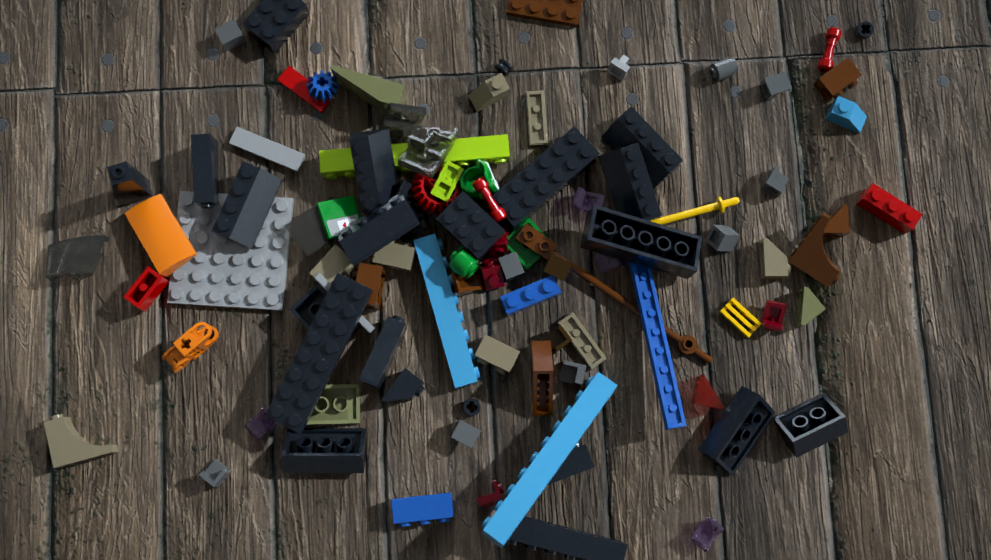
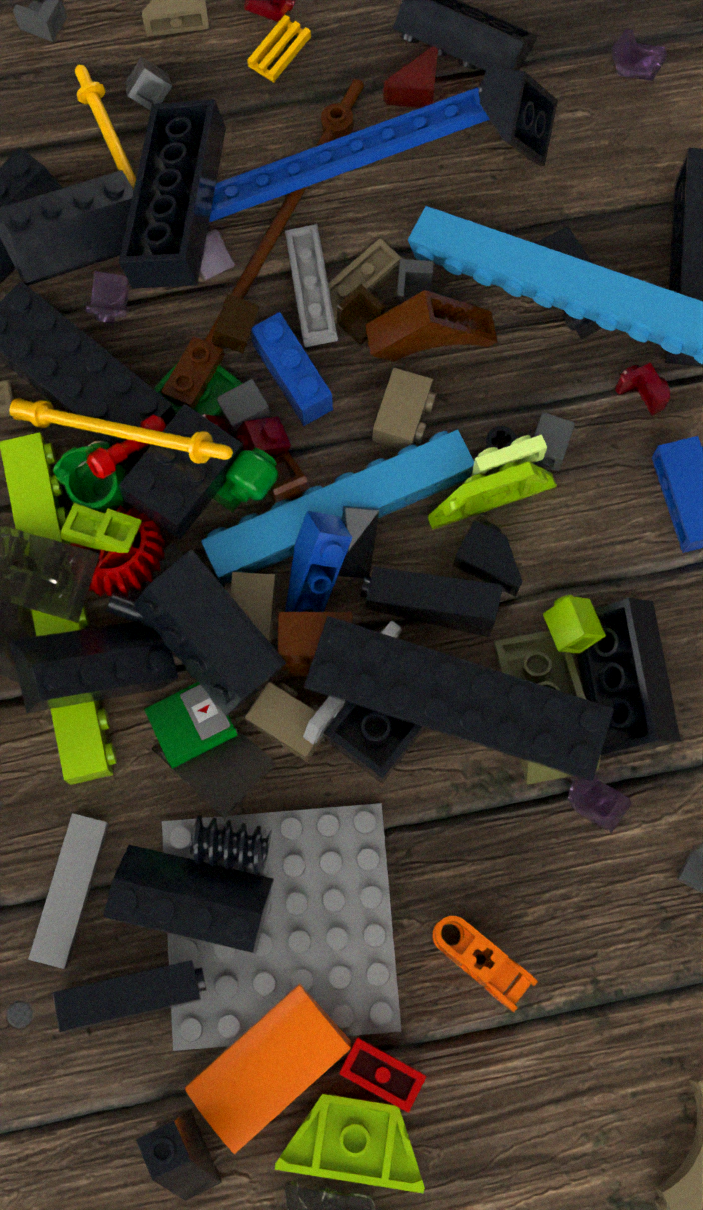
camera: 95 degrees left, 5 degrees down
(118, 272) = (354, 1144): none -> lime wing
(269, 228) = (229, 845): none -> black piece
(357, 426) = (573, 624): none -> lime brick
(410, 292) = (316, 561): none -> blue slope
(423, 316) = (362, 526): none -> black slope
(441, 403) = (488, 492): none -> lime wing
(452, 396) = (521, 451): none -> yellowish green plate
(521, 158) = (42, 414): none -> yellow bar
(581, 314) = (311, 286): none -> light grey tile
(665, 447) = (519, 111): none -> black slope

